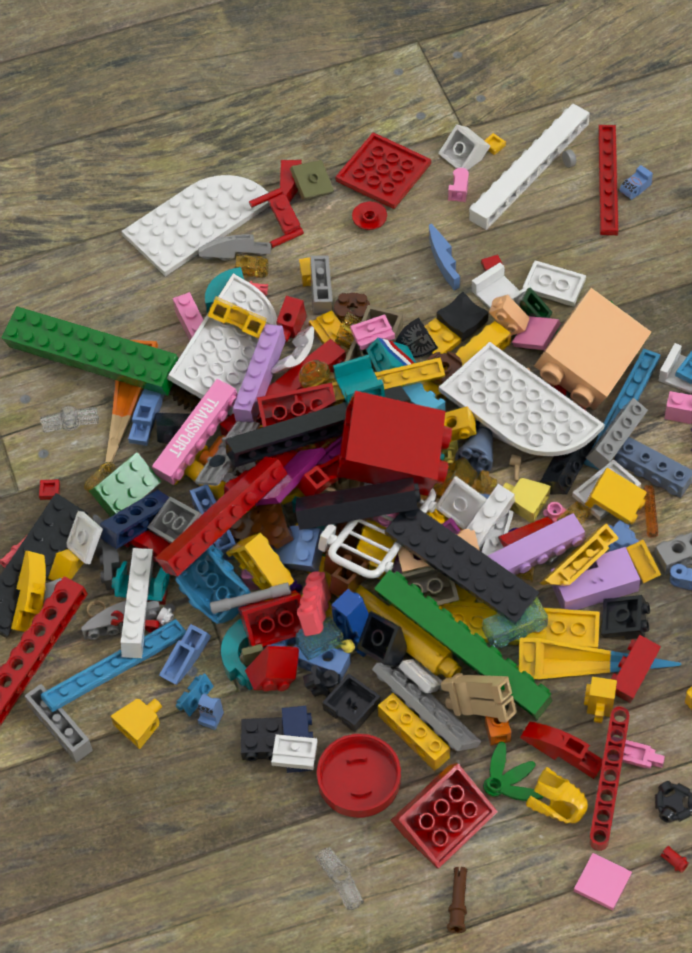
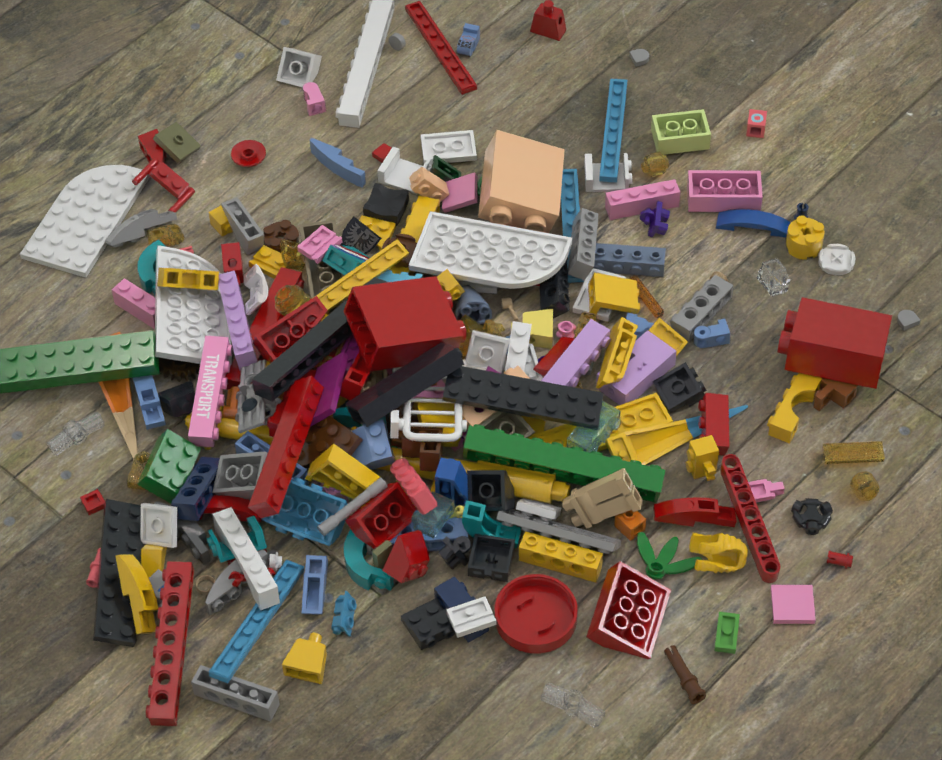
camera: 30 degrees left, 5 degrees down
(210, 711) = (369, 621): medium blue leg -> none
(354, 661) = (478, 522): none -> teal arch
(357, 376) = (334, 285): teal panel -> none
(383, 170) = (236, 111): red plate -> none
(496, 143) = (324, 52): yellow tile -> none
(522, 879) = (727, 632): none -> bright green plate

